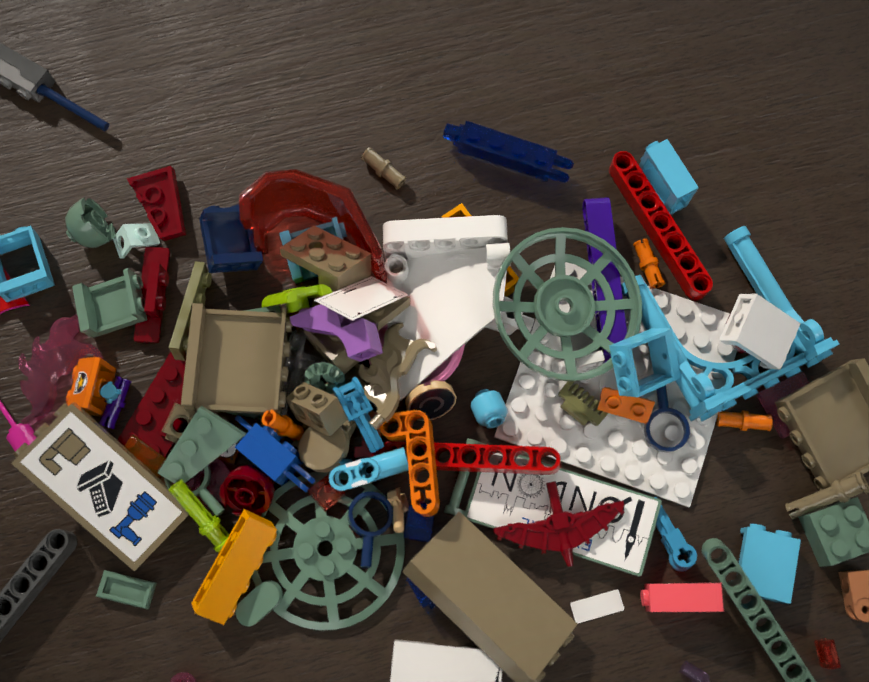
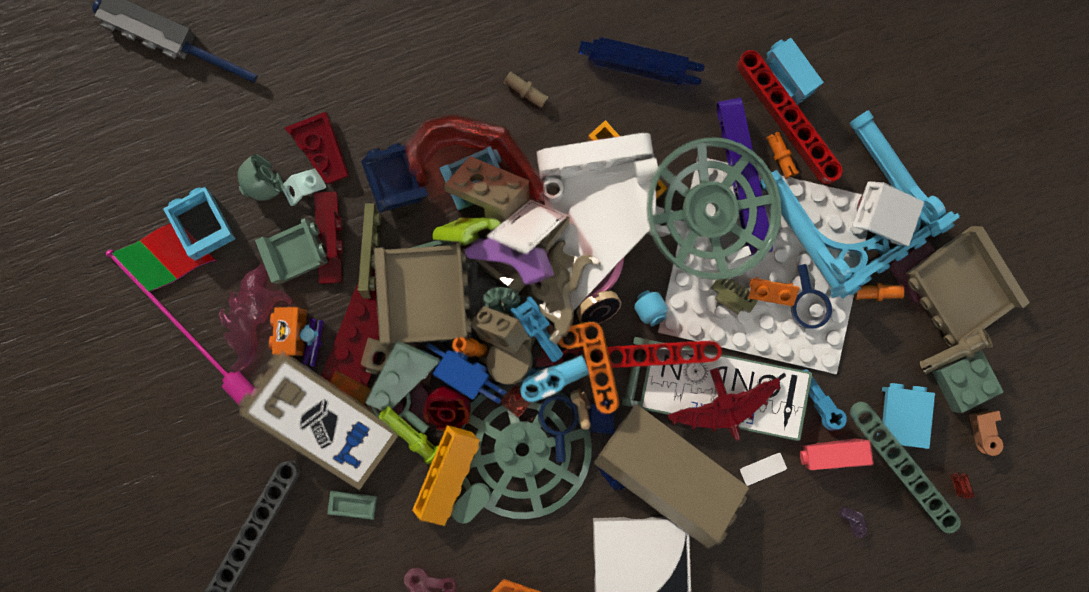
camera: 15 degrees left, 10 degrees up
(665, 369) = (806, 256): medium azure window -> none

